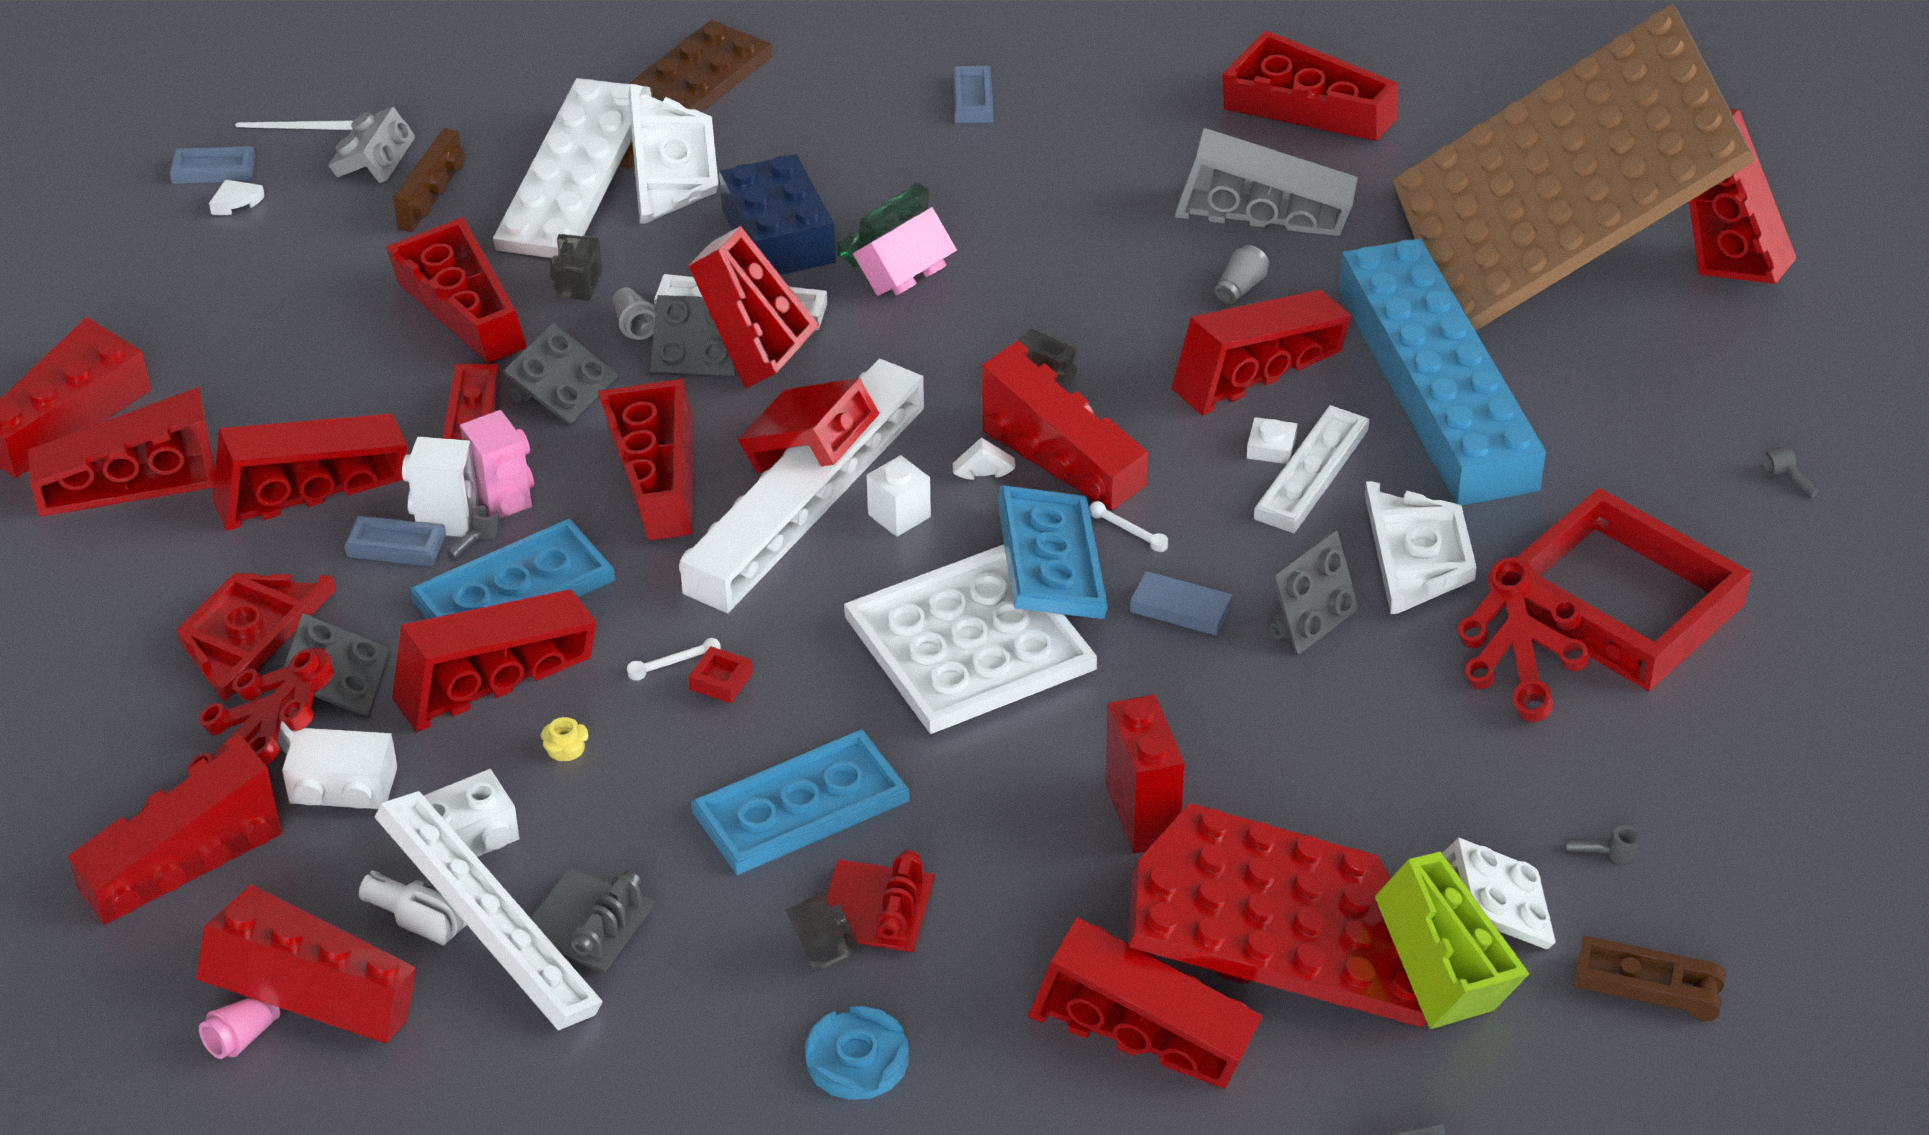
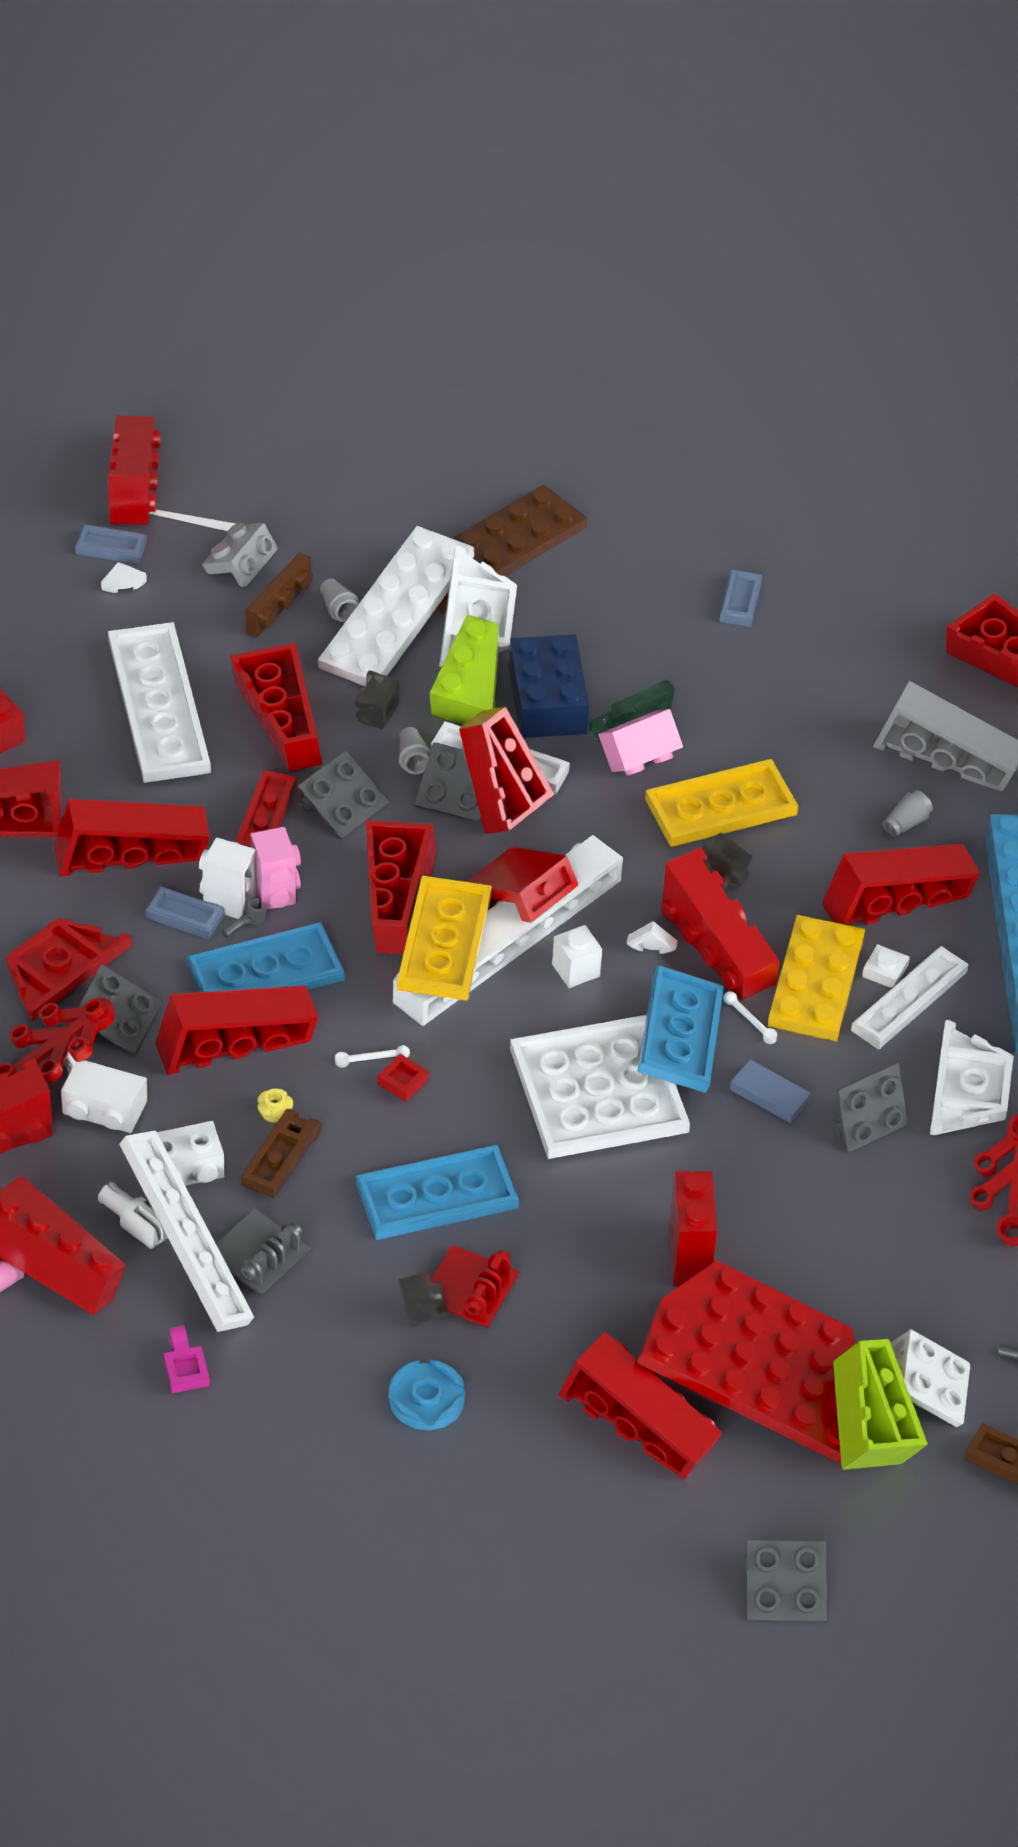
camera: 10 degrees right, 5 degrees up
(223, 83) = (131, 470): none -> red wedge
(309, 317) = (159, 702): none -> white plate
(502, 173) = (338, 600): none -> light grey cone
(523, 1081) = (184, 1365): none -> dark pink plate
(586, 794) = (280, 1153): none -> reddish brown plate
(678, 216) = (468, 673): none -> lime wedge
(732, 501) = (444, 938): none -> yellow plate
(1017, 300) = (721, 802): none -> yellow plate
(1194, 469) = (816, 978): none -> yellow plate

